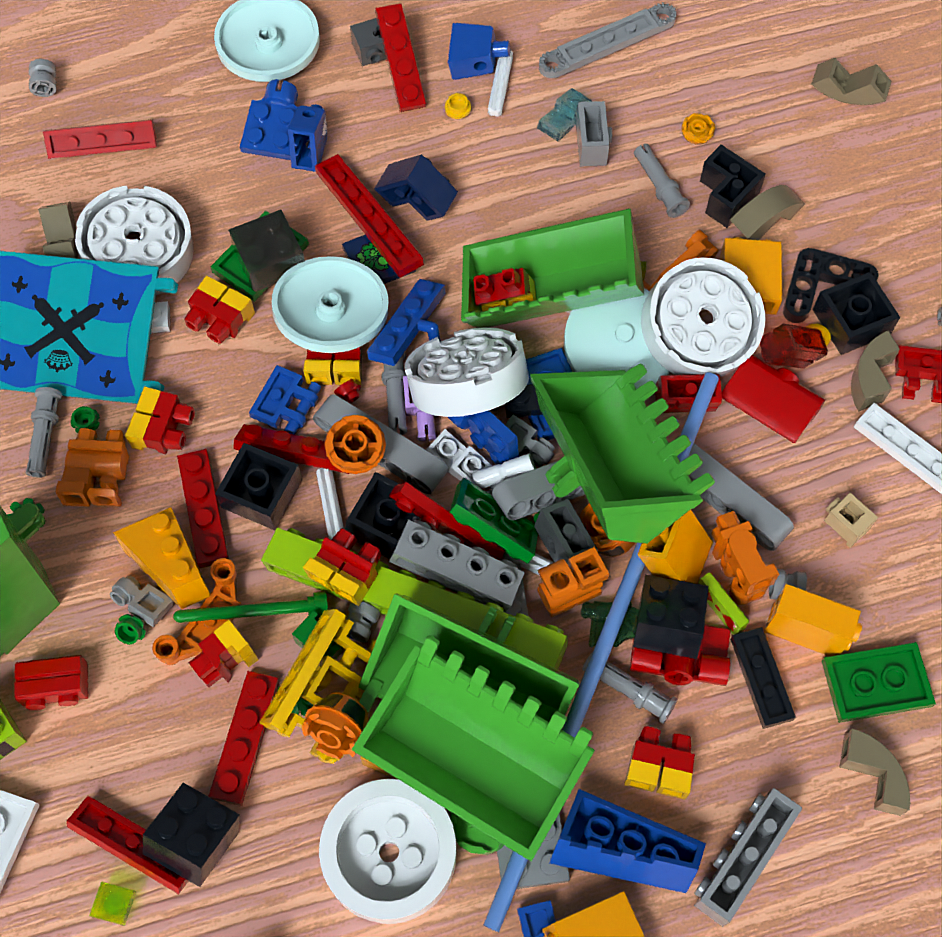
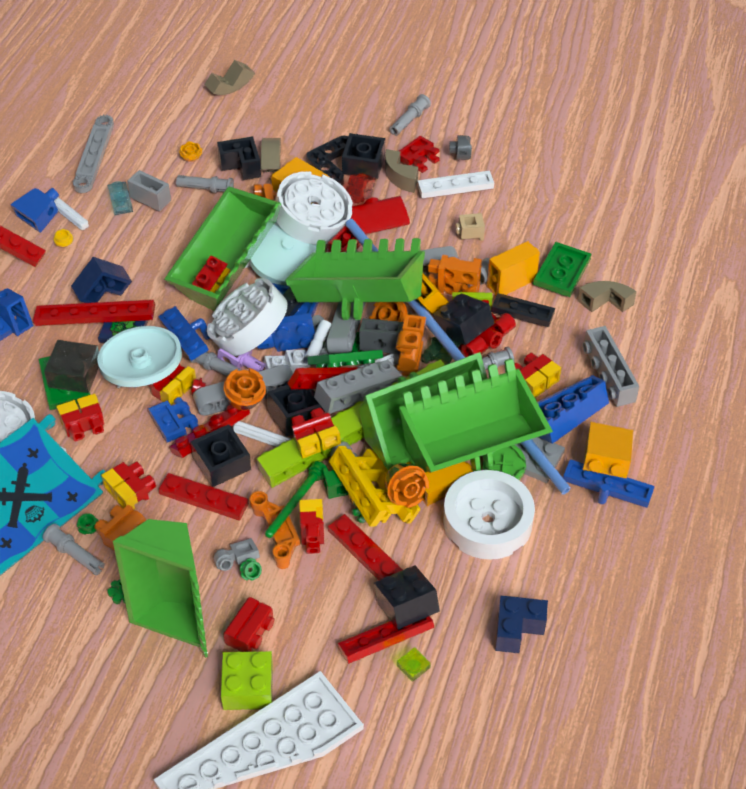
camera: 55 degrees left, 15 degrees down
(165, 555) = (224, 521): light orange wedge -> none

